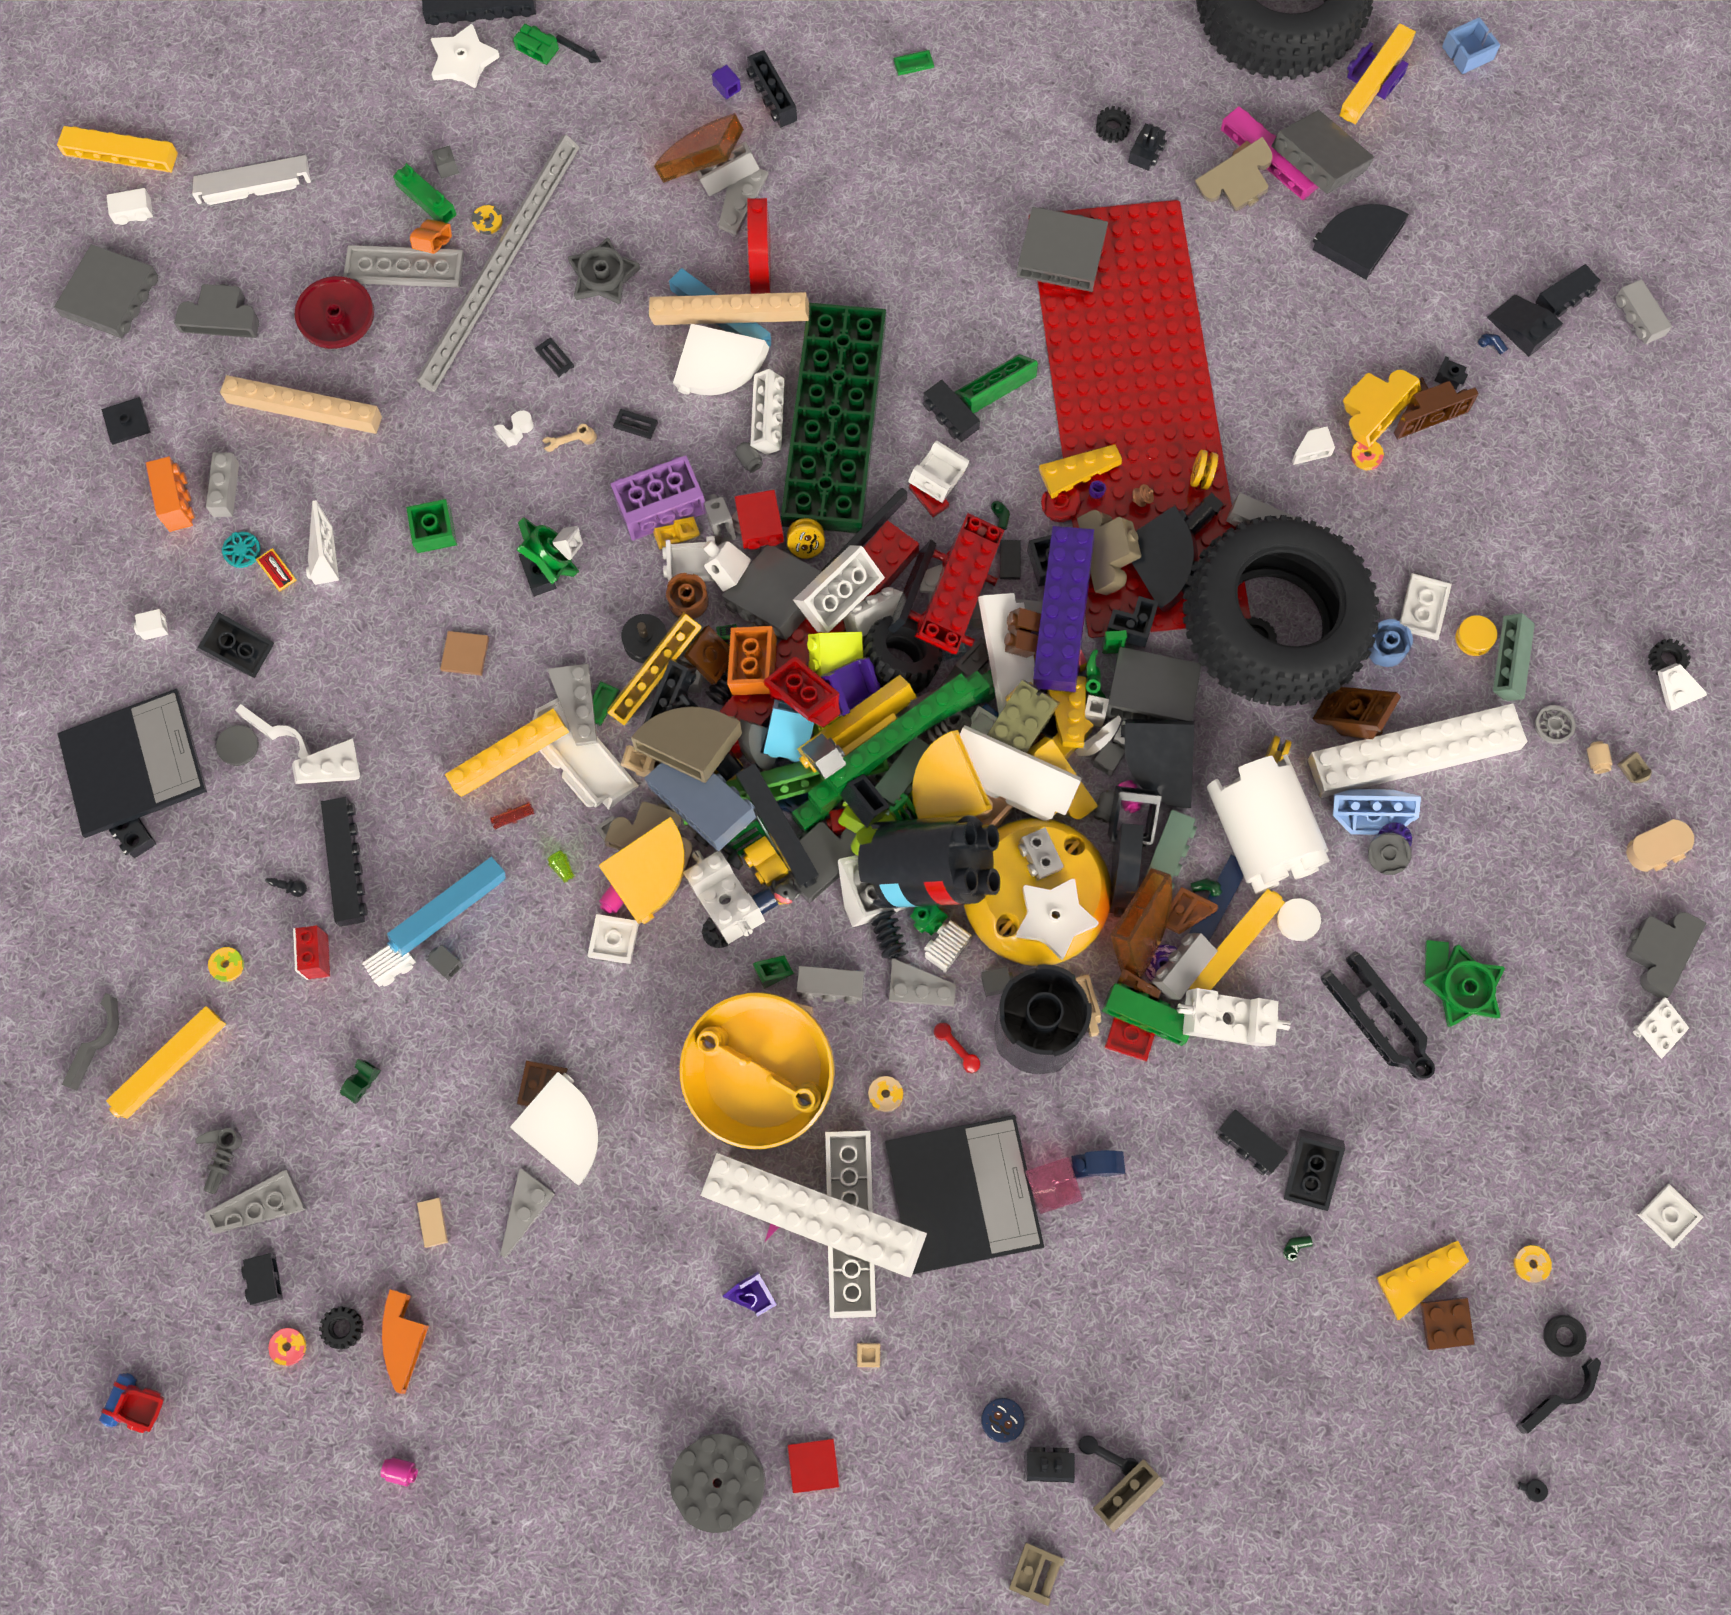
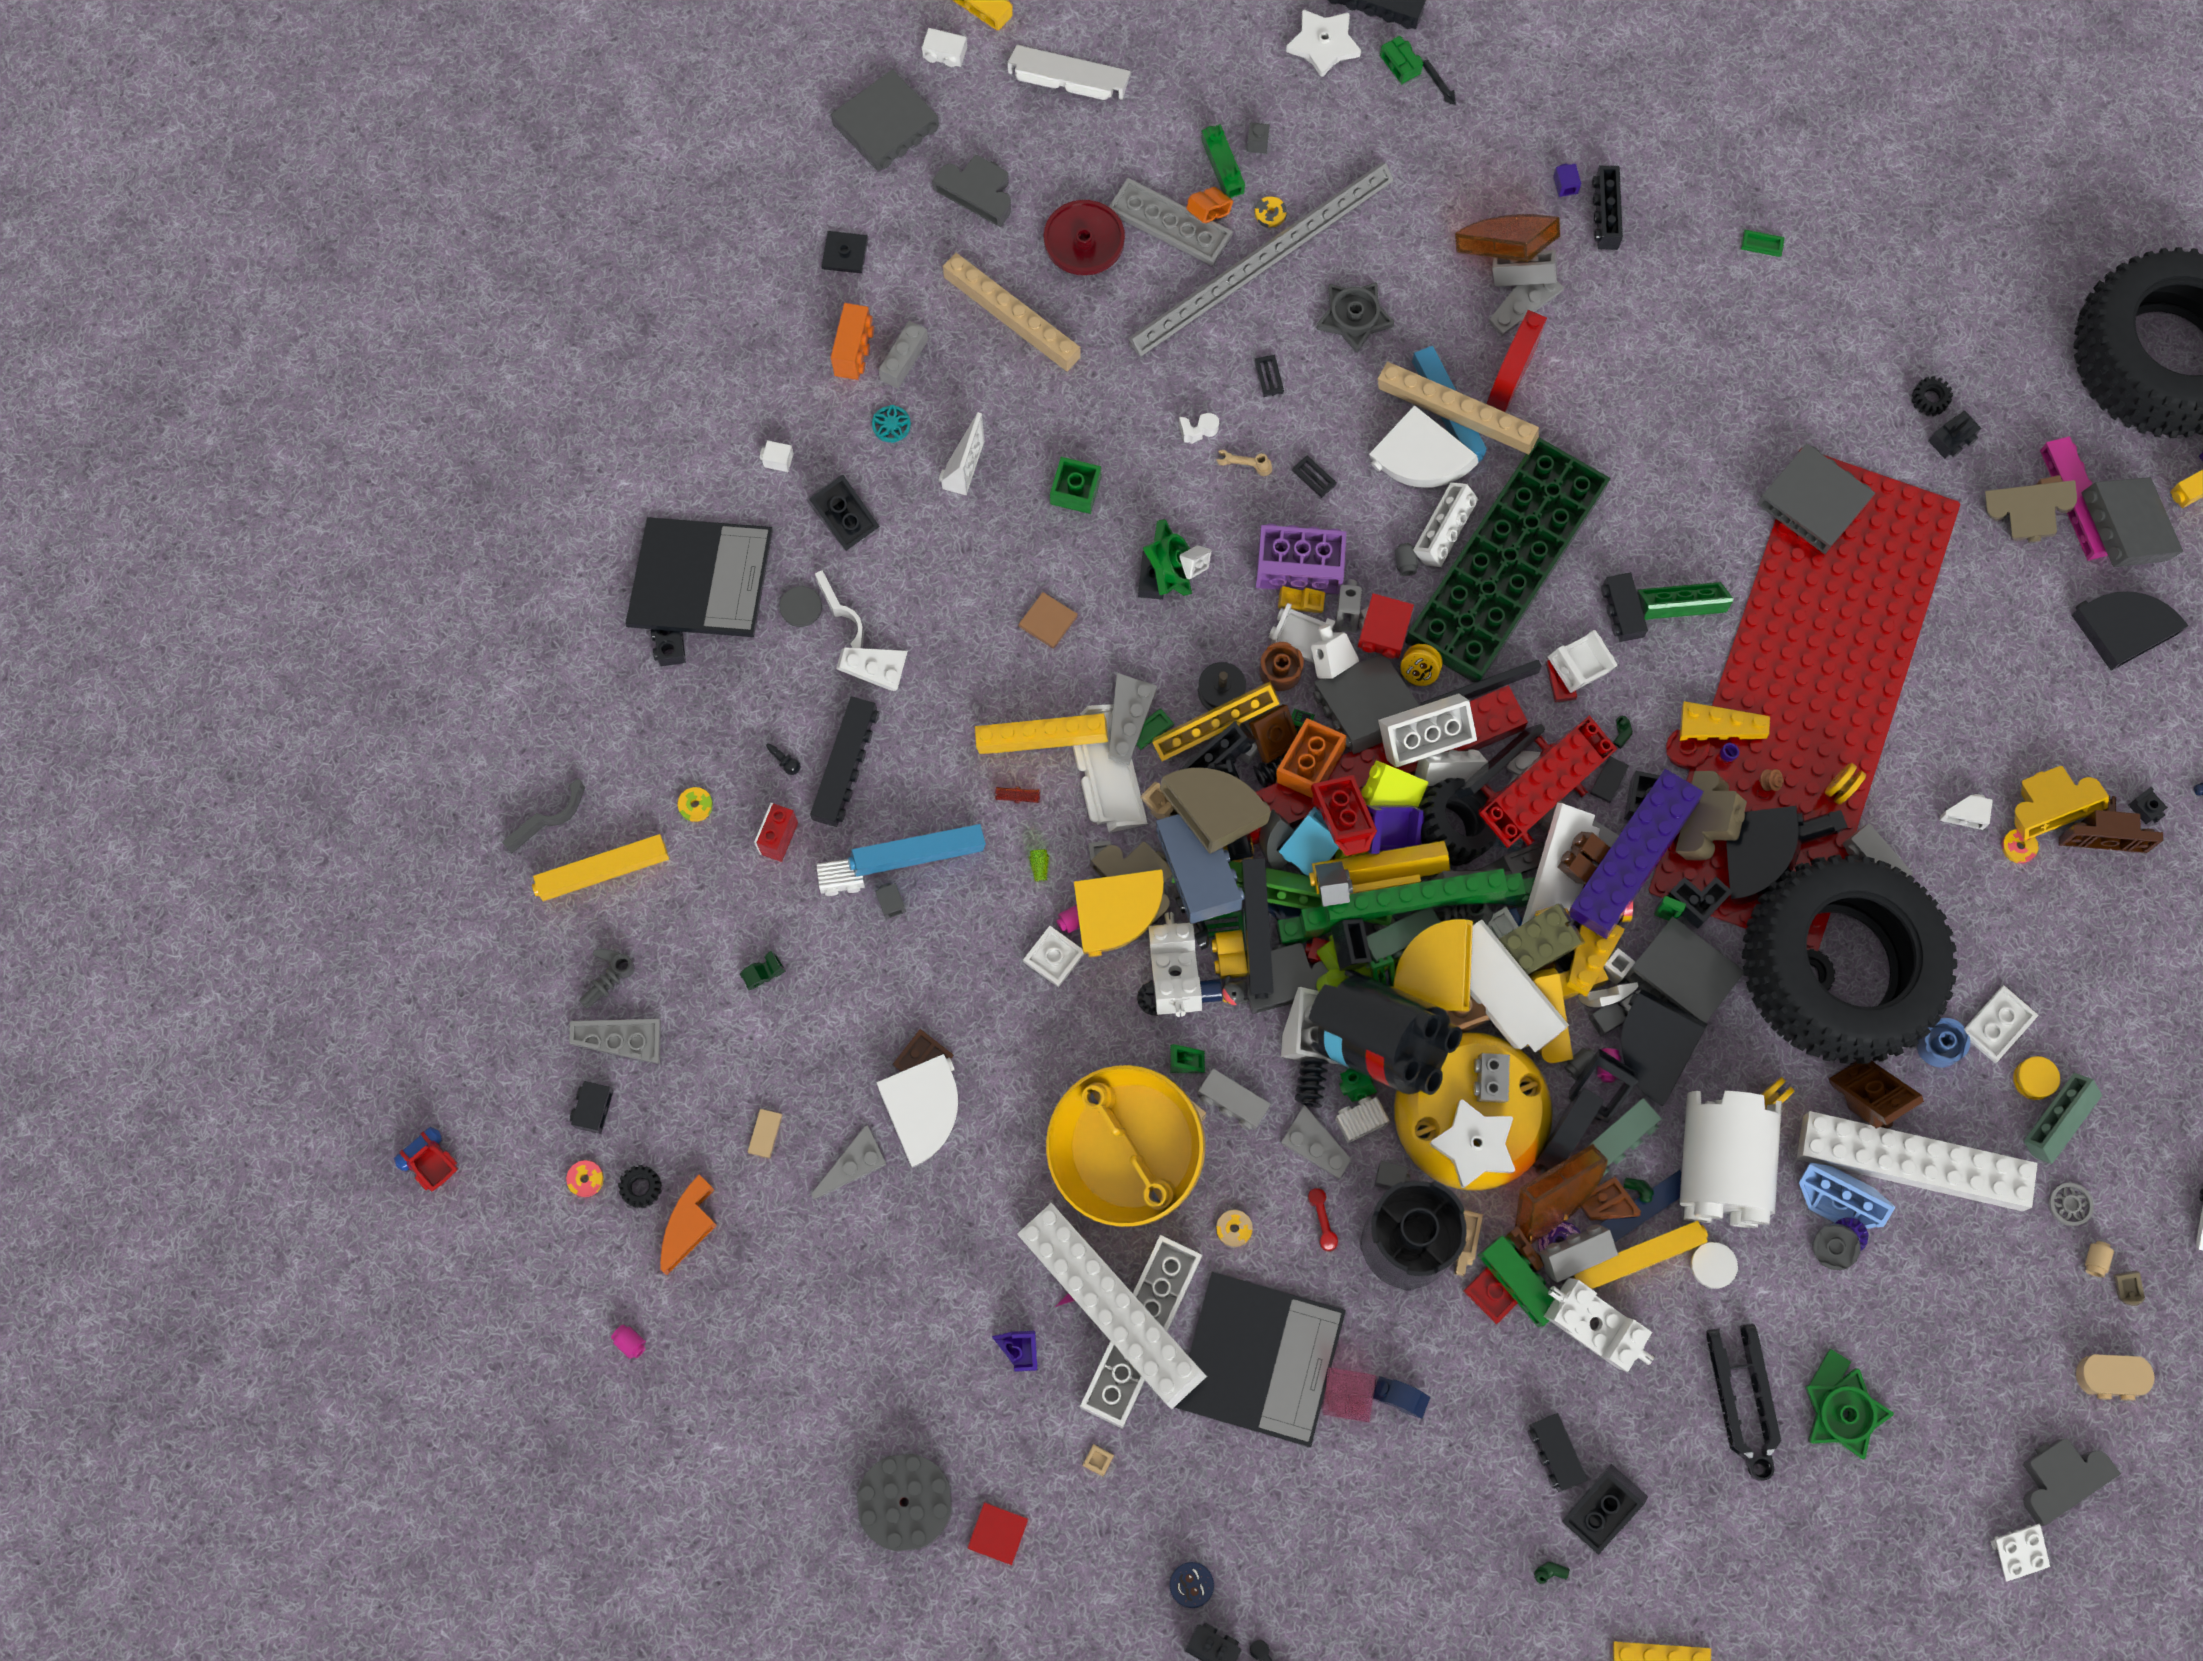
camera: 25 degrees right, 0 degrees up
(276, 569) = (913, 458): slope -> none
(1093, 676) = (1632, 933): green plant -> none

